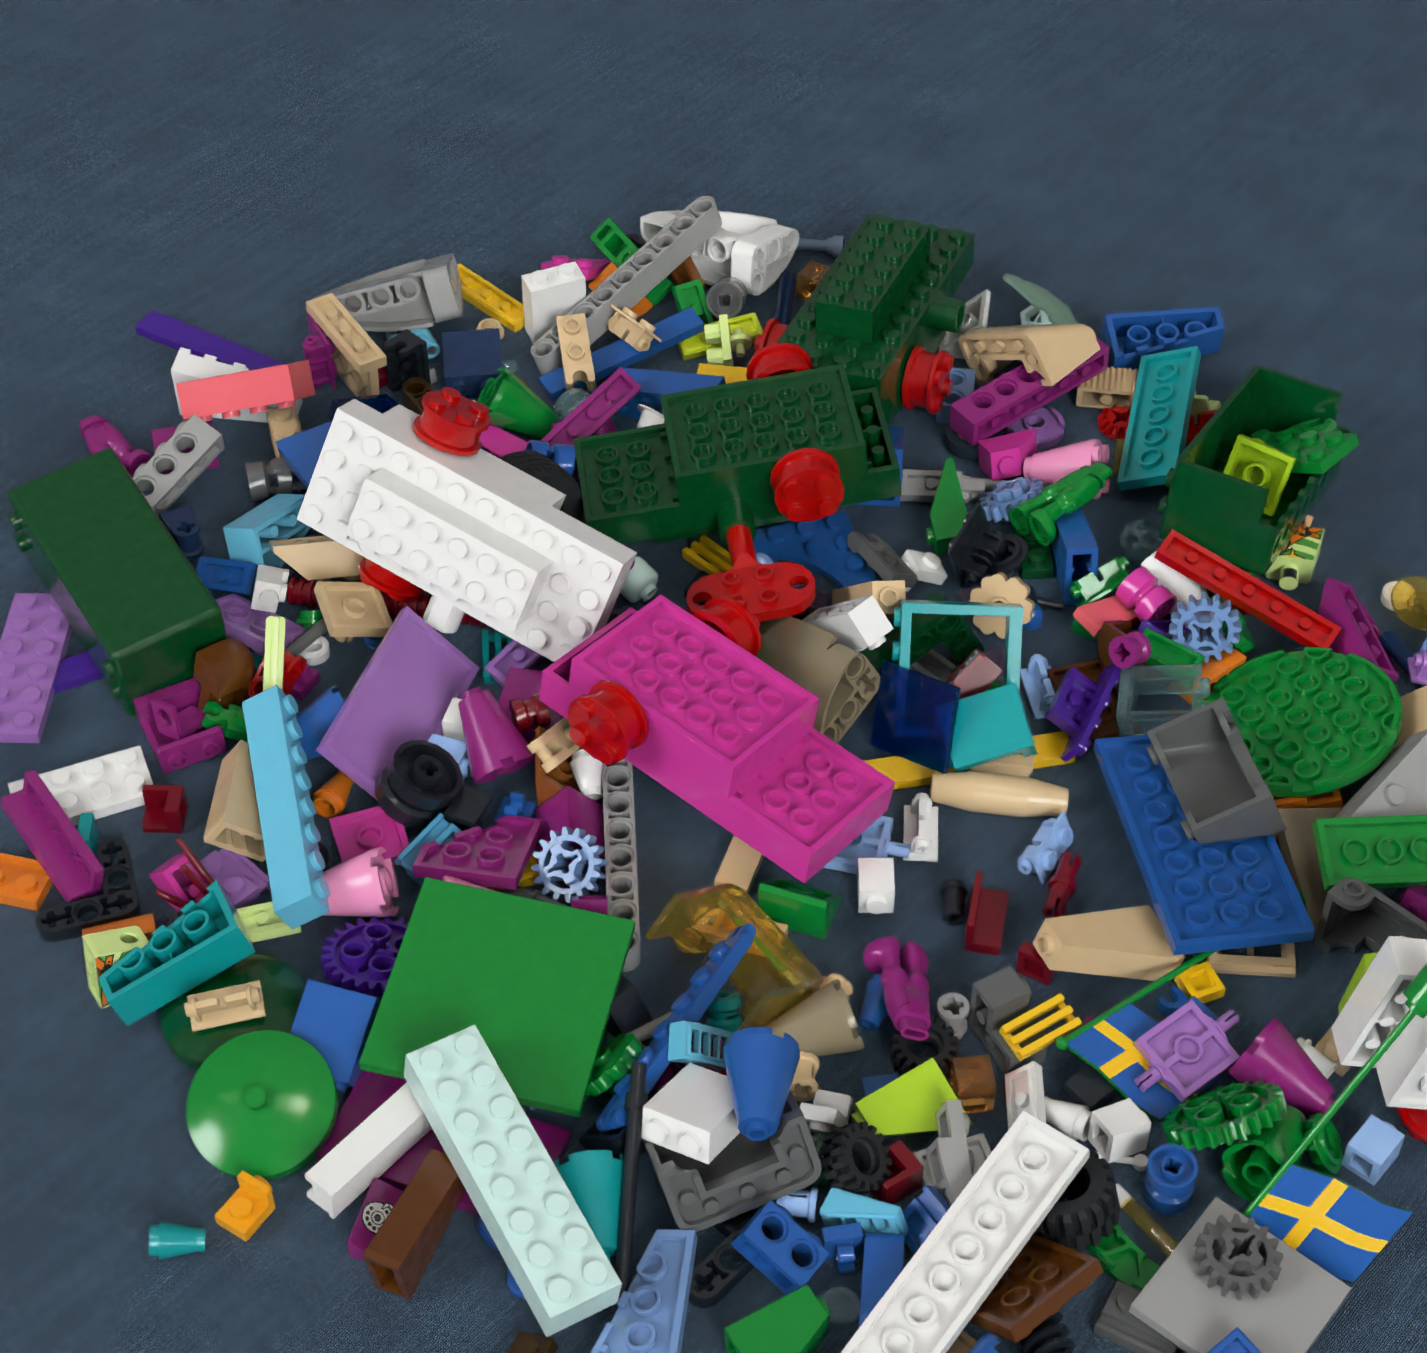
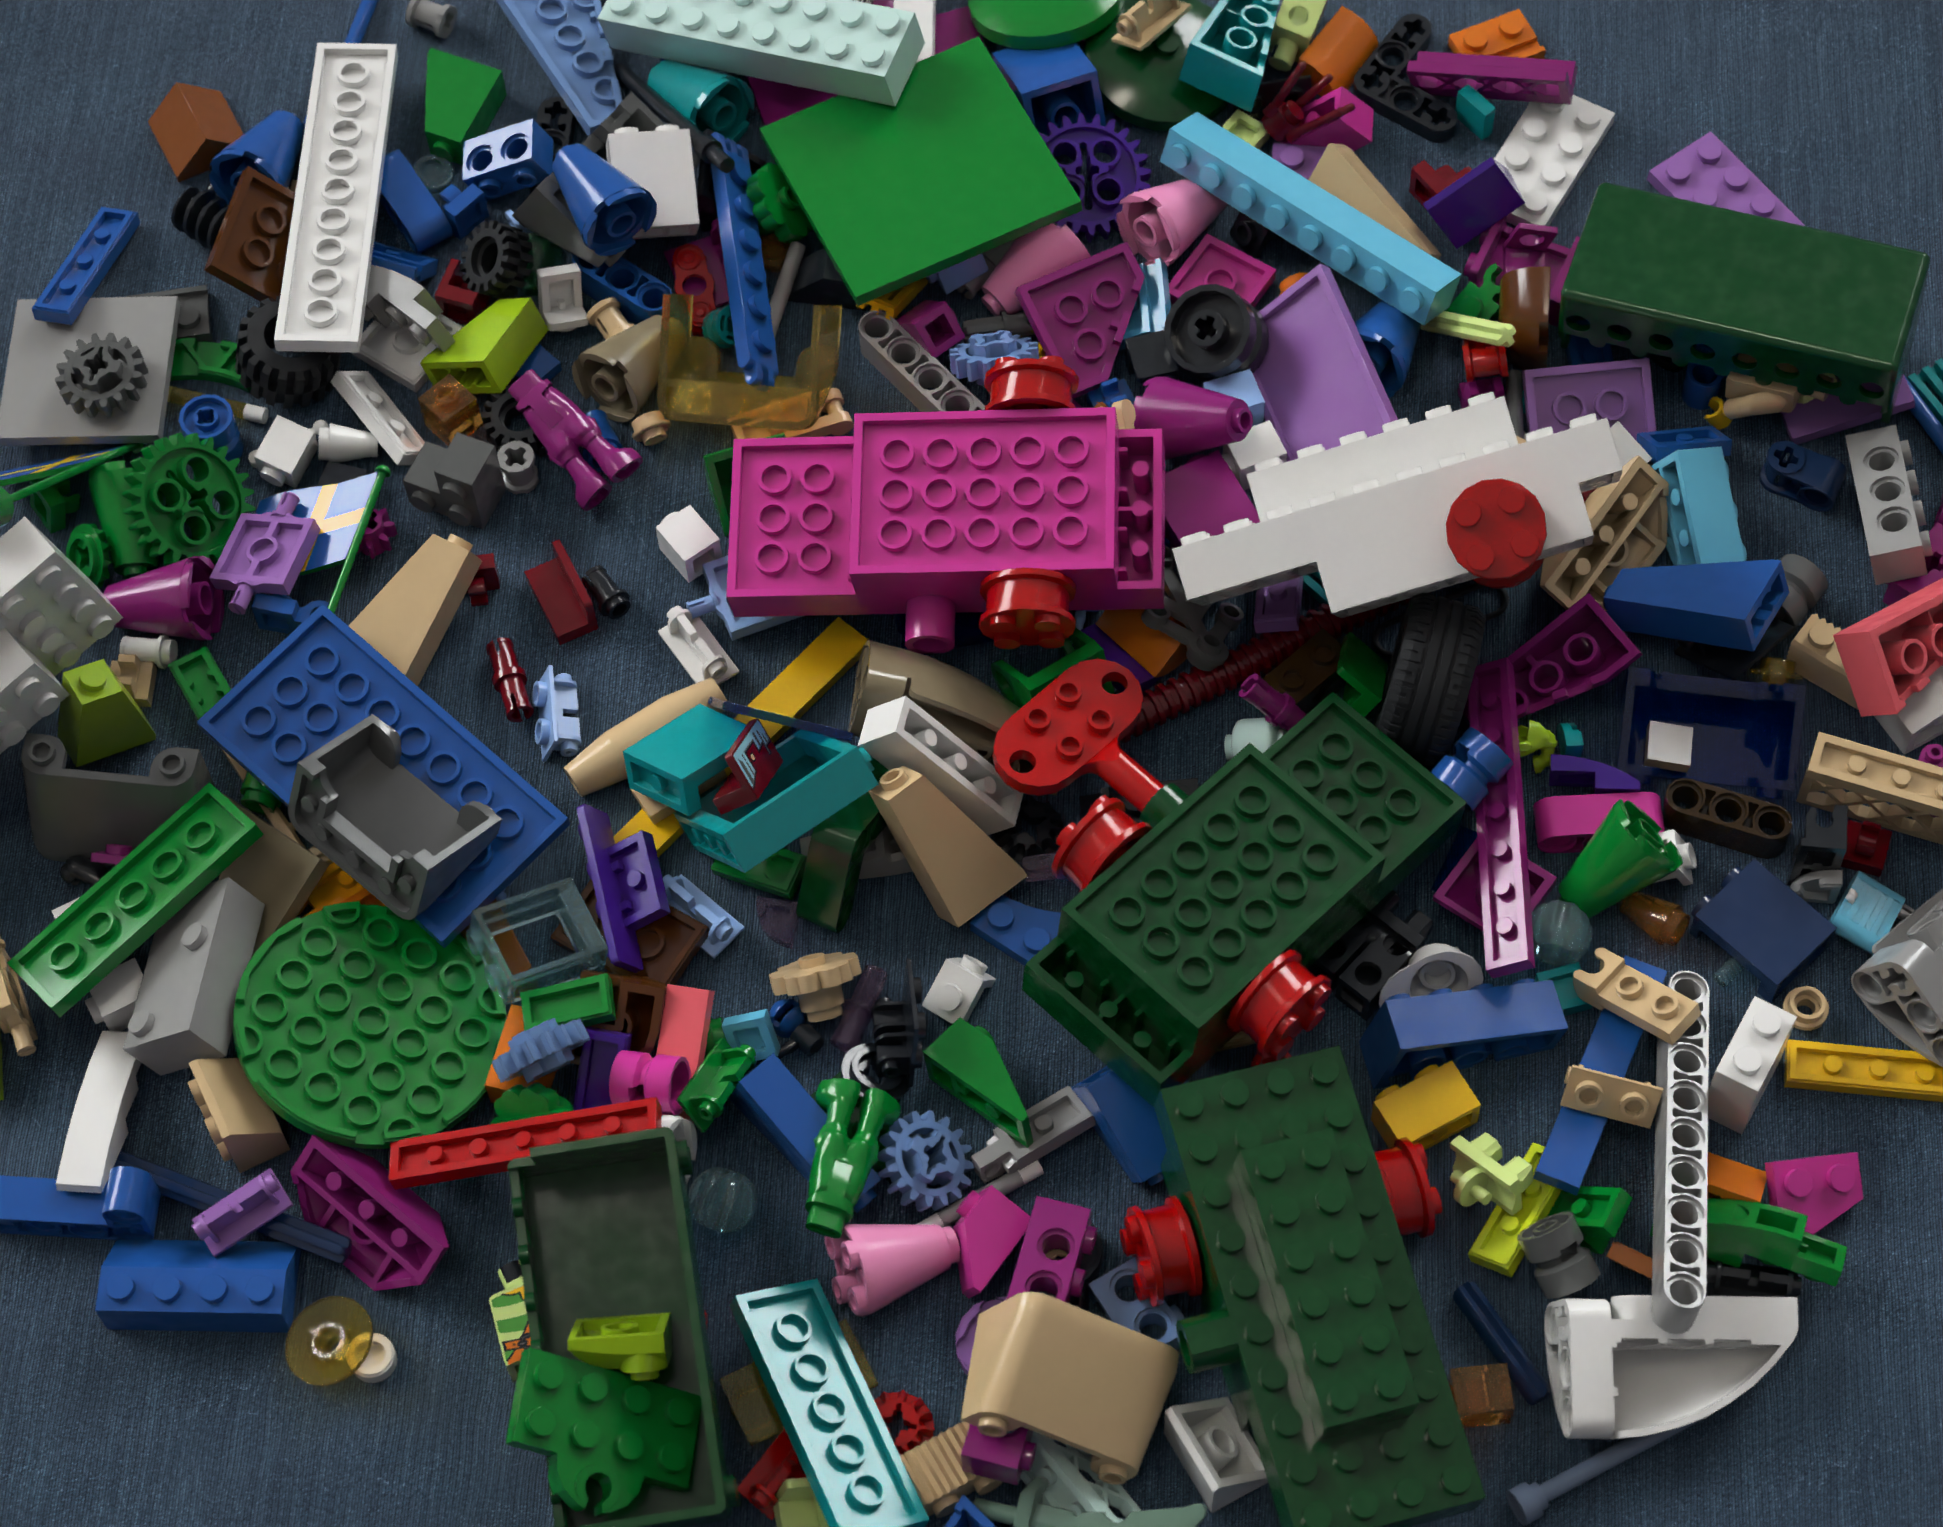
camera: 145 degrees right, 15 degrees up
(166, 761) = (1475, 202): none -> dark purple slope
(529, 712) = (1183, 462): dark red wheel -> none
(680, 1044) = (703, 246): medium azure slope -> none
(874, 1215) = (456, 230): medium azure slope -> none
(881, 558) = (988, 941): dark grey hinge -> none
(1061, 606) = (753, 1030): none -> medium azure tile
(1064, 1012) = (407, 474): yellow tile -> none
(1134, 642) = (604, 953): magenta wheel -> none
(1285, 1001) = (199, 680): none -> green plate

